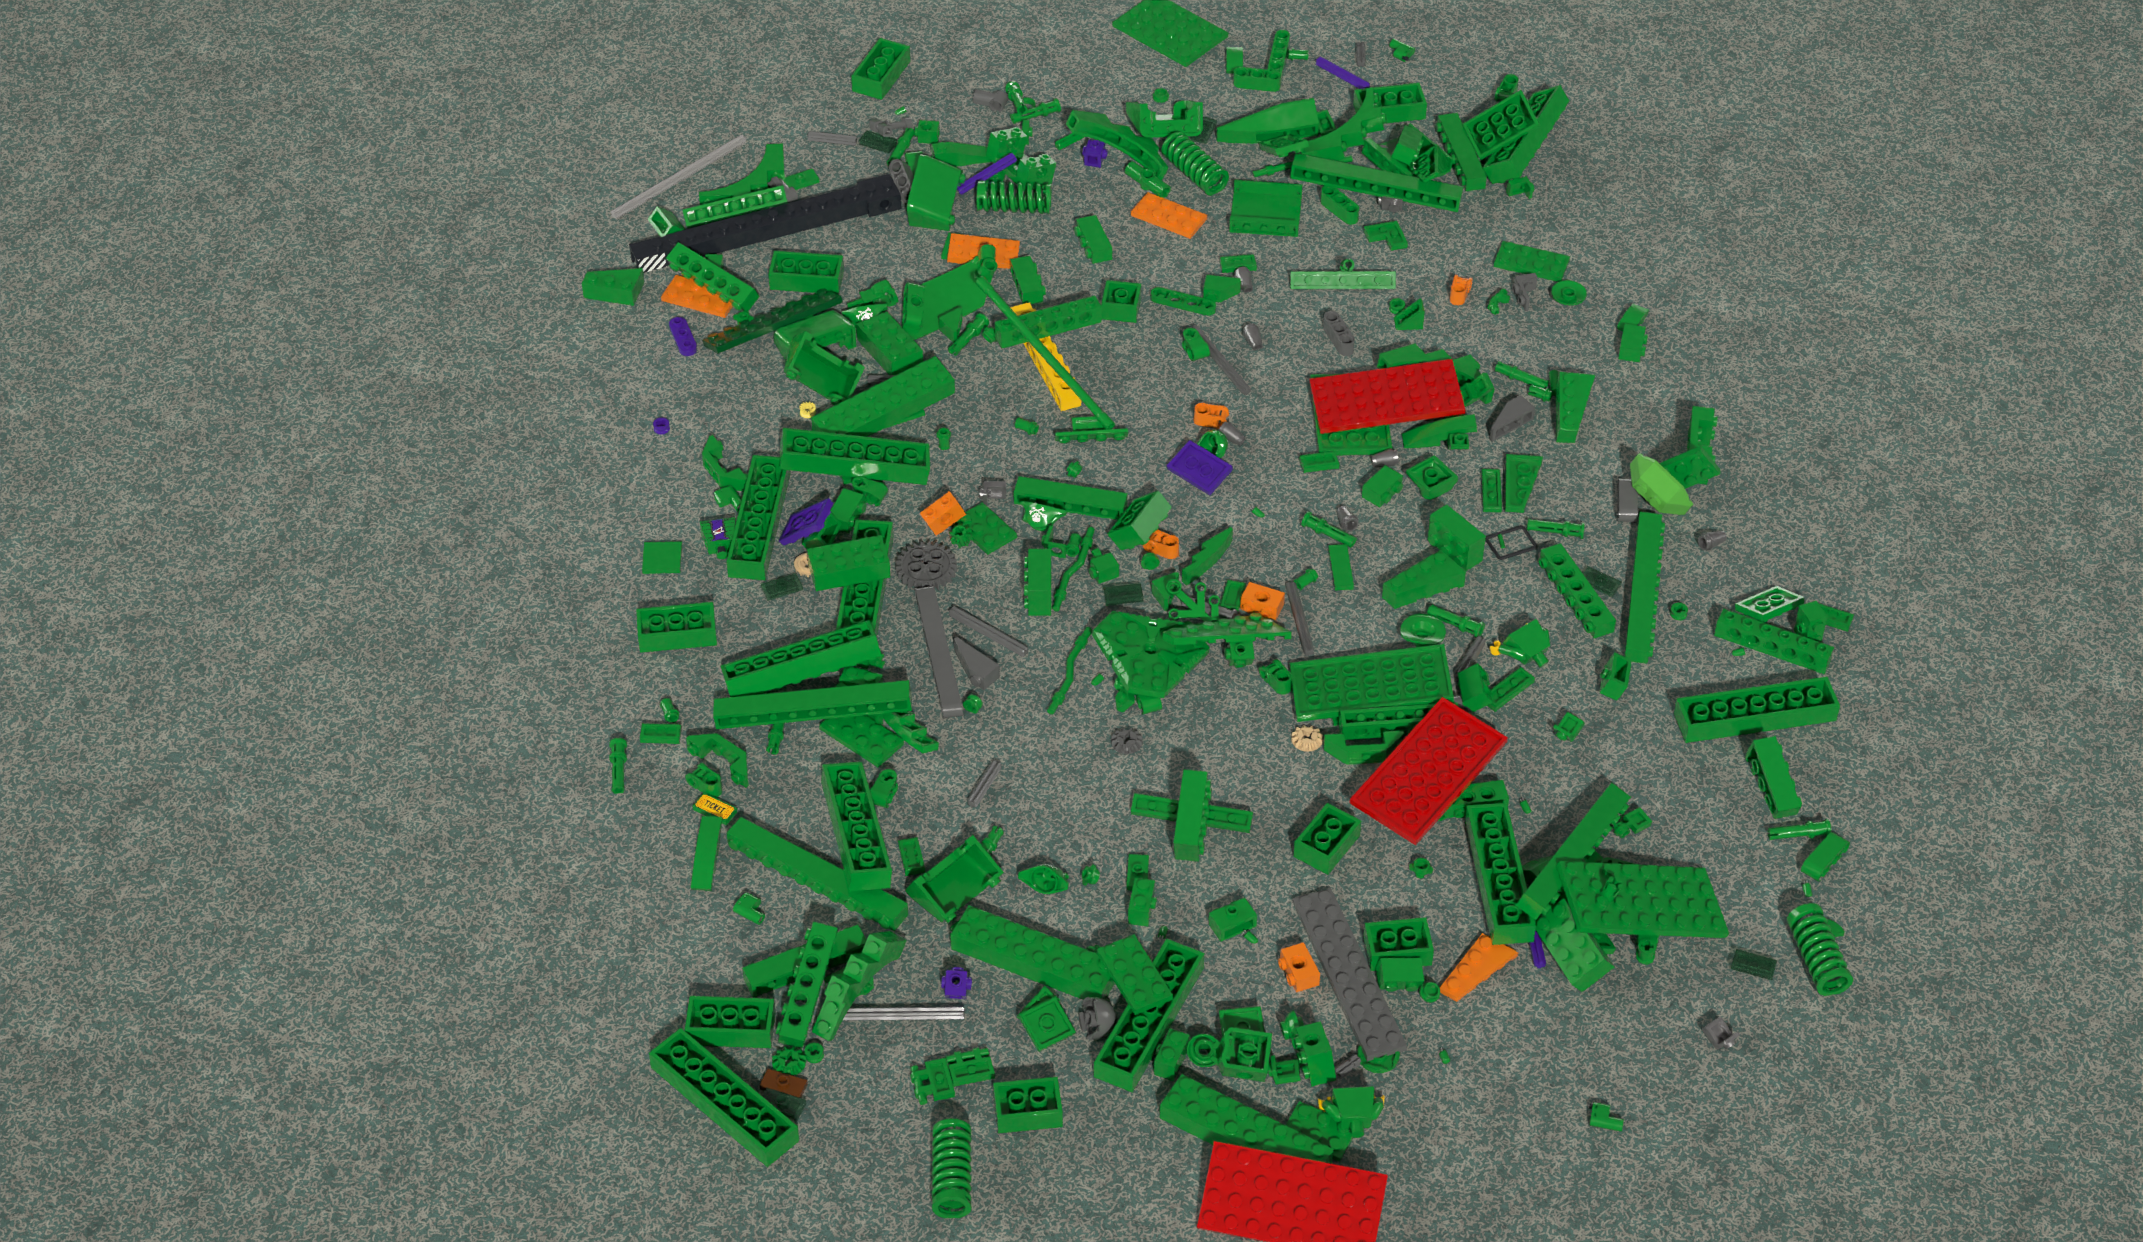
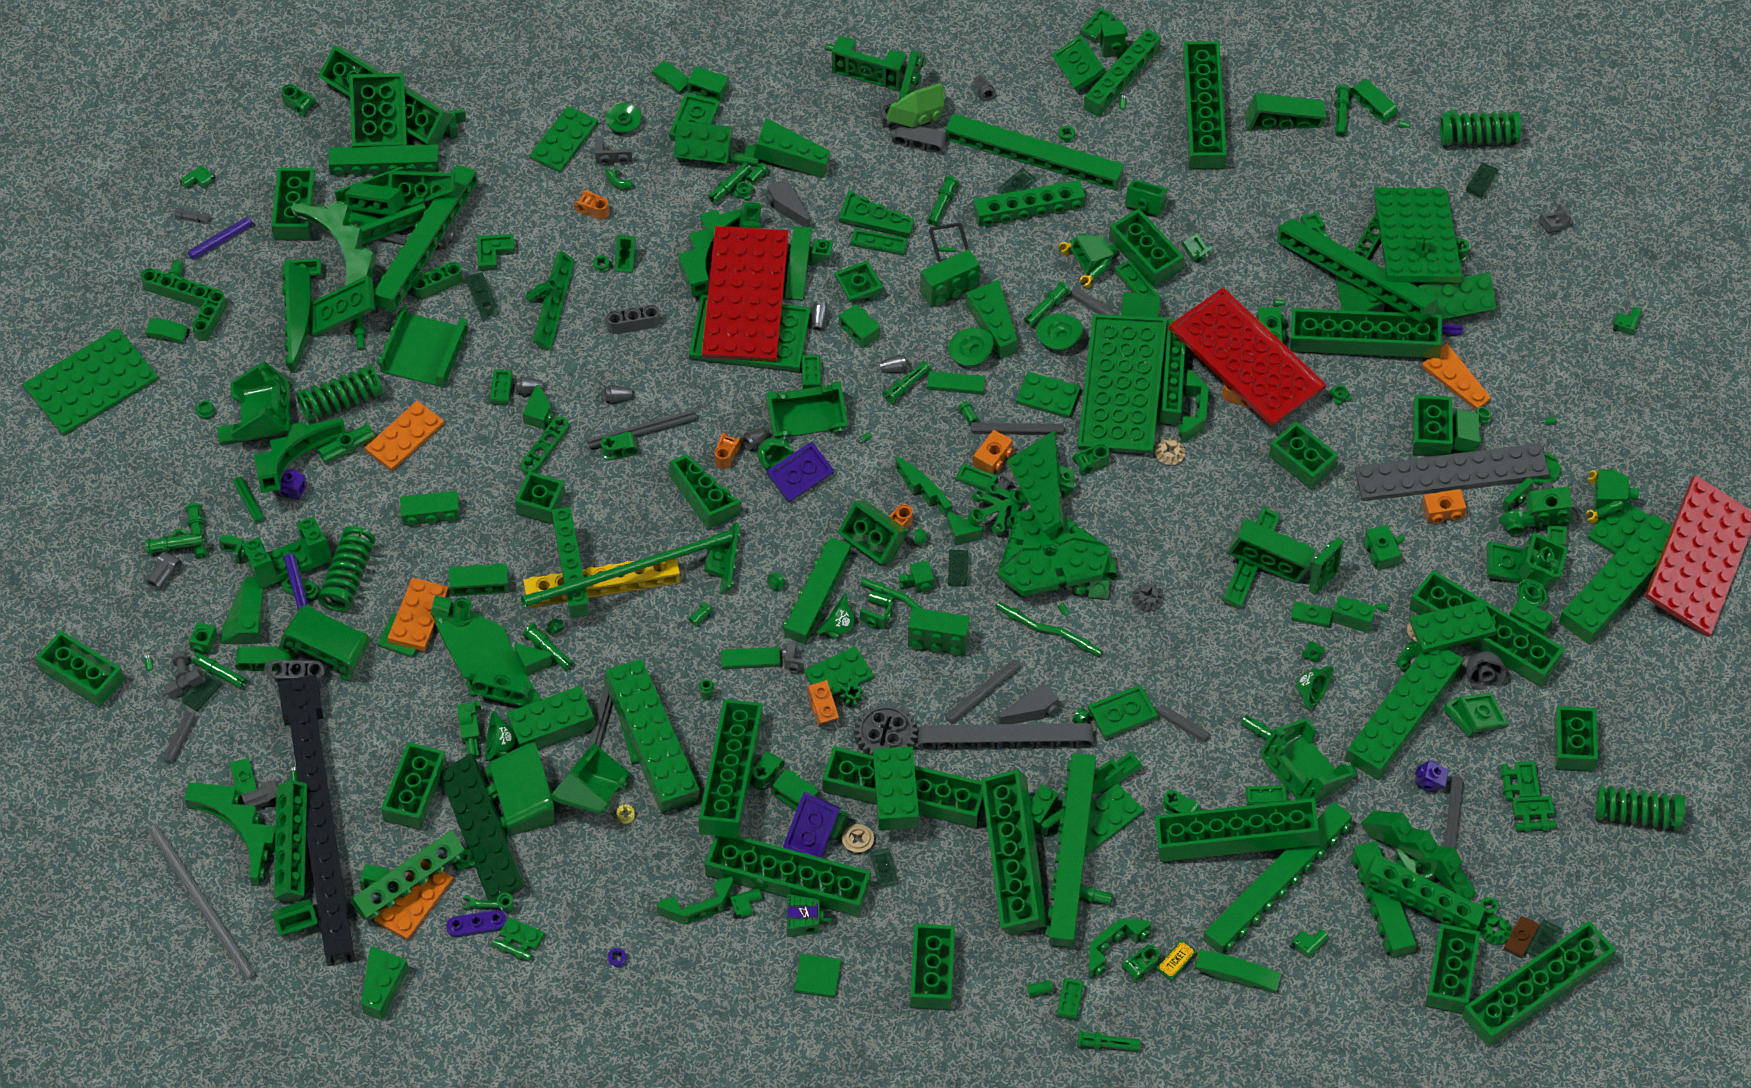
camera: 80 degrees left, 10 degrees up
(676, 364) = (521, 934): none -> green plate
(701, 342) = (501, 903): none -> green brick
(985, 735) = (1122, 712): none -> green plate
(987, 463) = (750, 658): none -> green tile
(1155, 404) = (703, 493): none -> green wedge
(1184, 861) = (1325, 565): none -> green plate
(1269, 459) = (806, 411): none -> green windscreen
(1333, 236) = (481, 295): none -> clear green plate
(1335, 1032) = (1518, 495): none -> green plate
(1347, 634) = (1048, 394): none -> green plate
(1382, 567) = (971, 346): none -> green hat
(1517, 386) = (744, 186): none -> green plate
(1549, 683) = (1146, 247): none -> green brick
(1555, 343) = (703, 141): none -> green brick
(1587, 341) = (695, 110): none -> green plate

